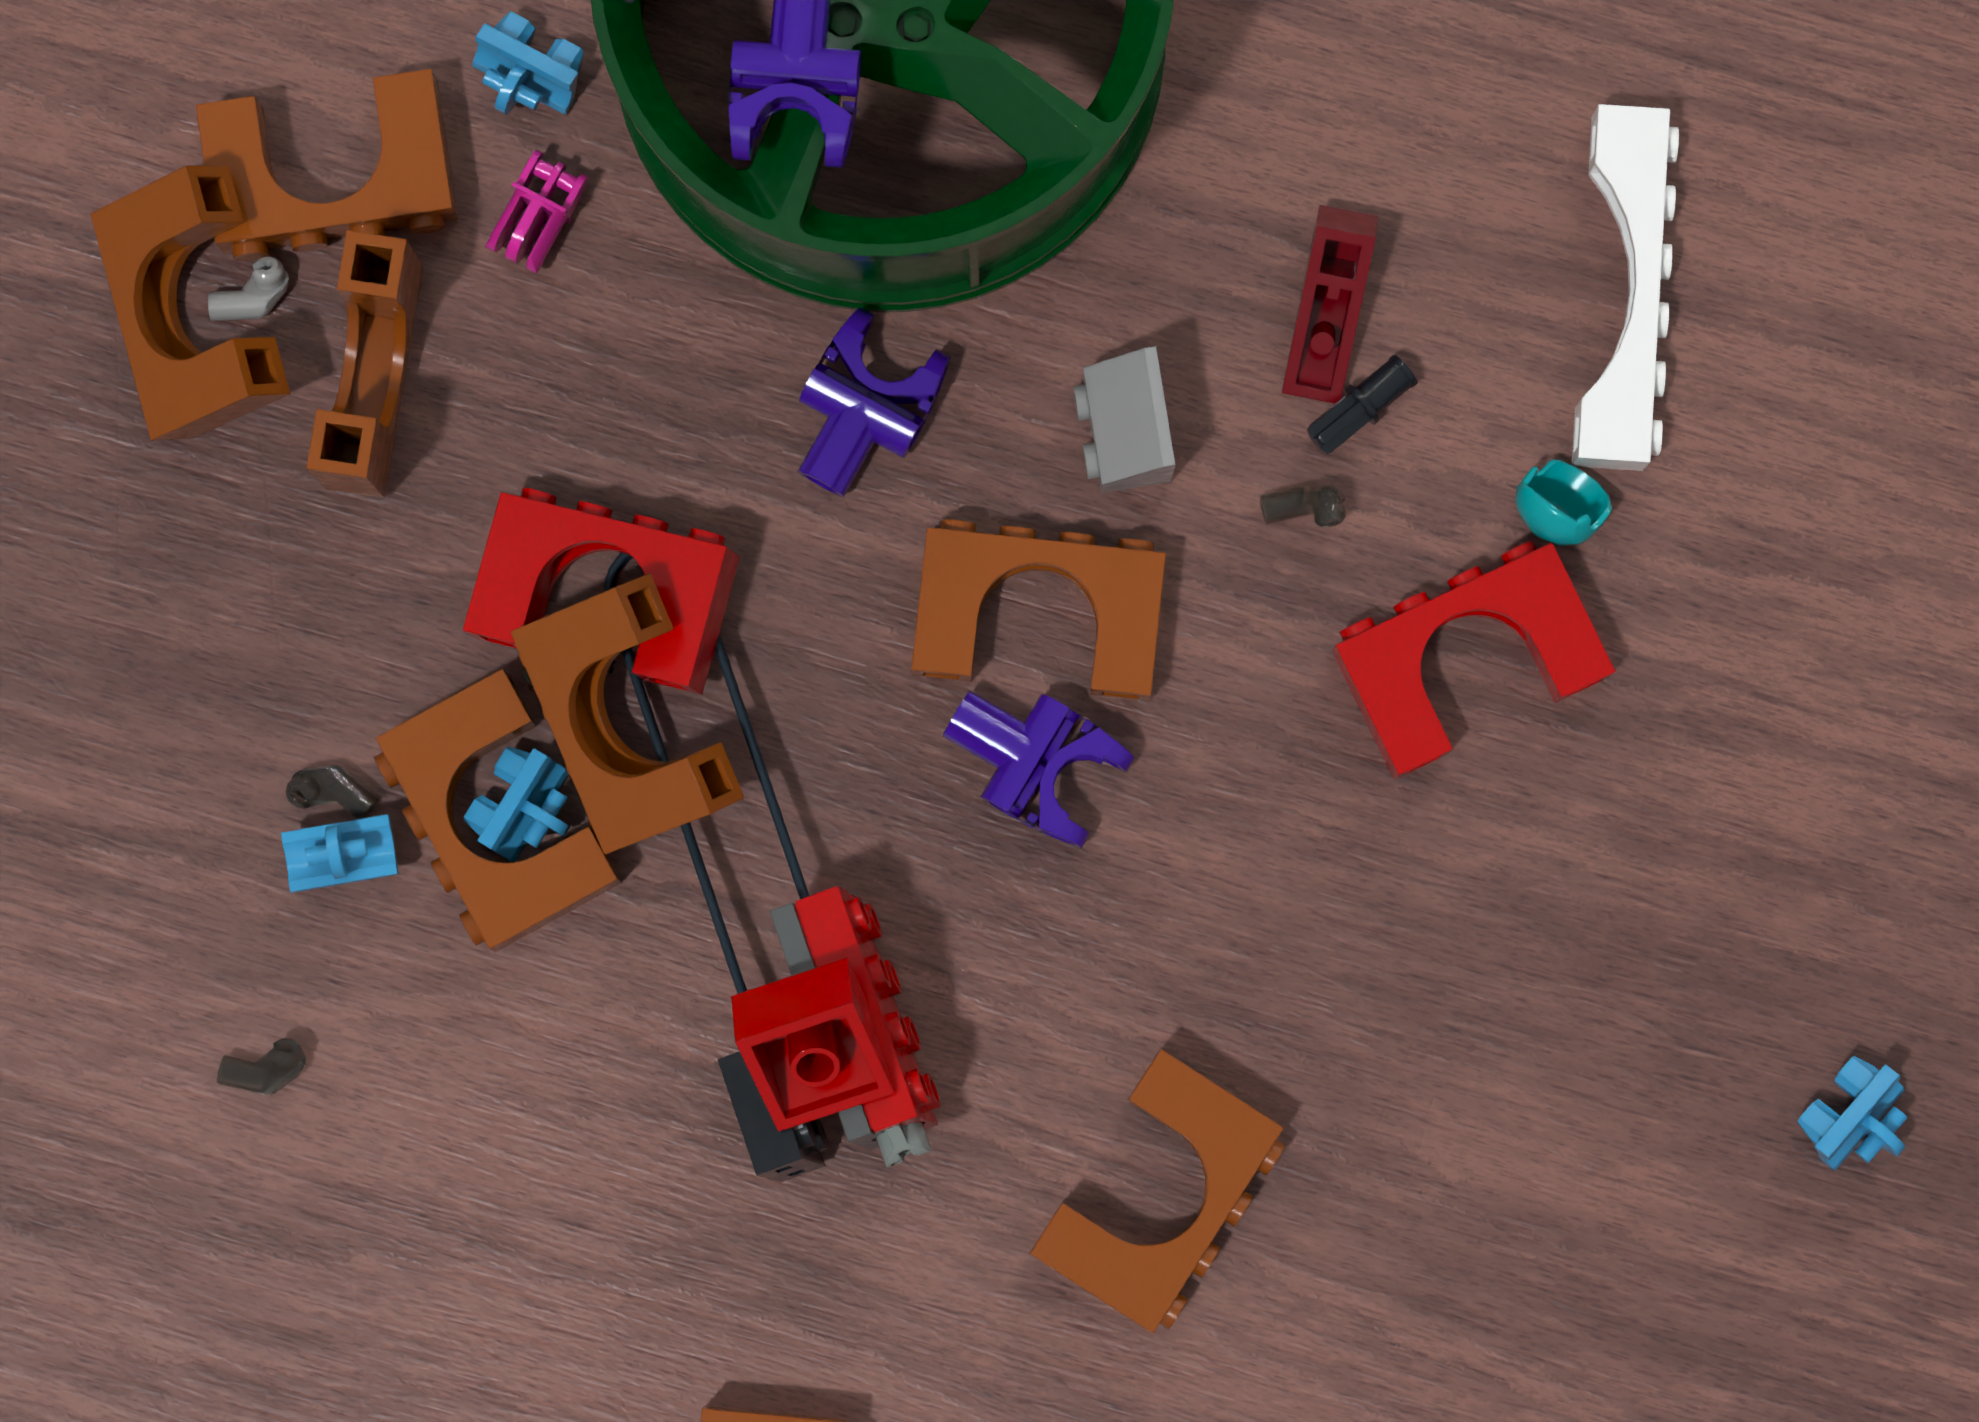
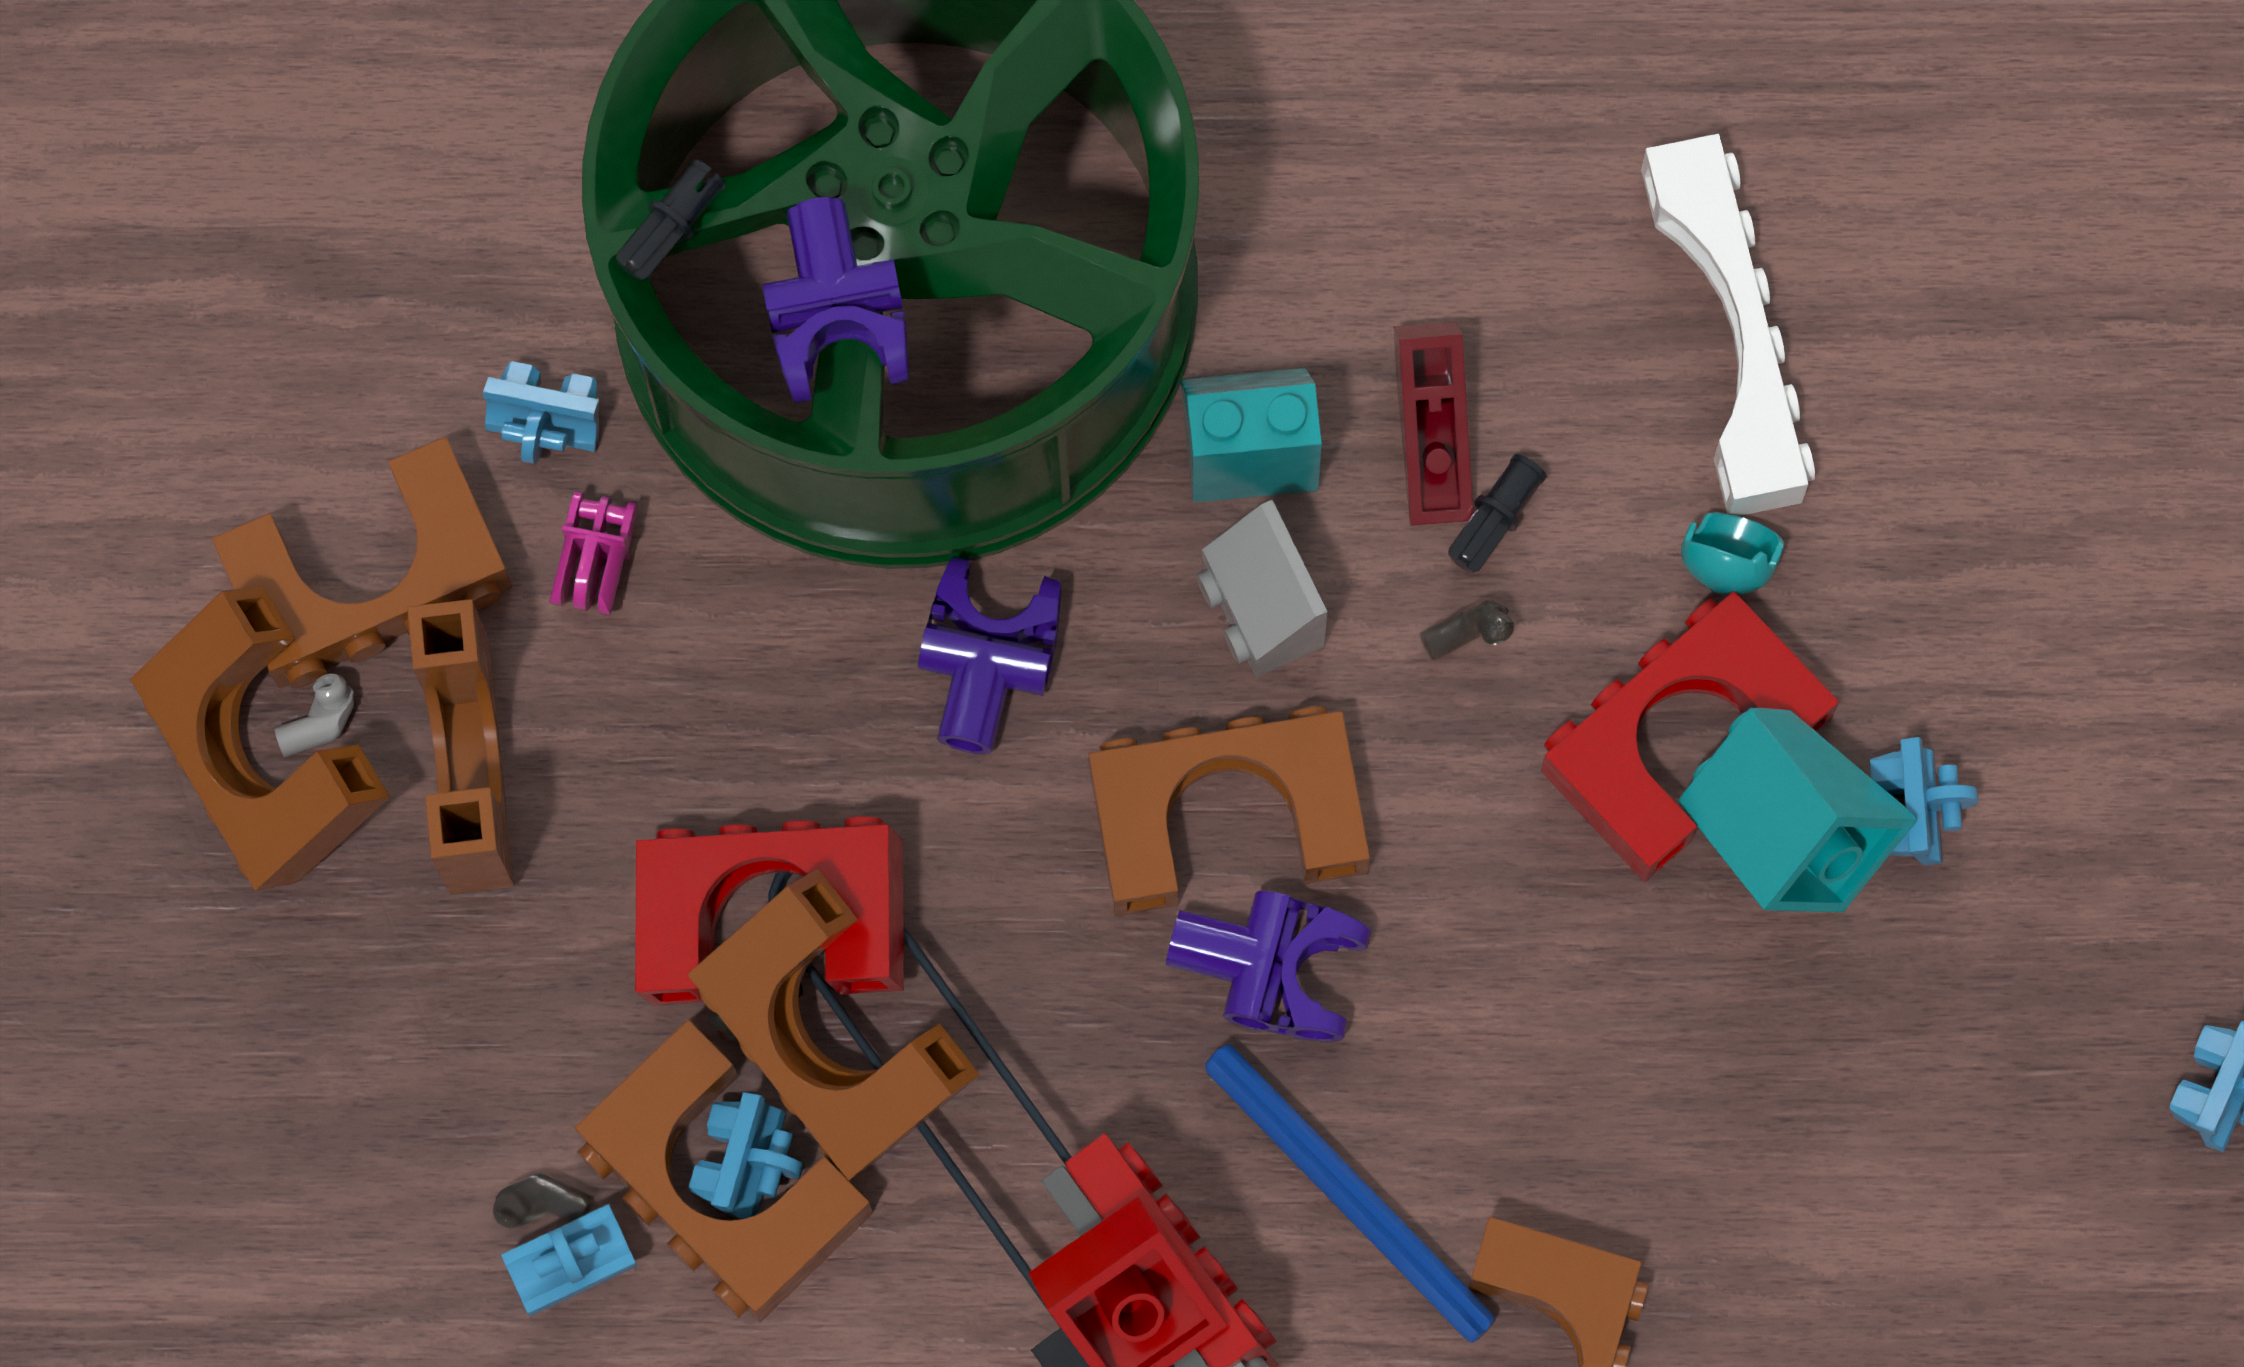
camera: 15 degrees left, 10 degrees down
(1046, 986) = (1350, 1193): none -> blue axle
(1160, 266) = (1252, 434): none -> teal slope
(1541, 763) = (1793, 814): none -> teal slope
(1664, 753) = (1914, 775): none -> dark azure hips

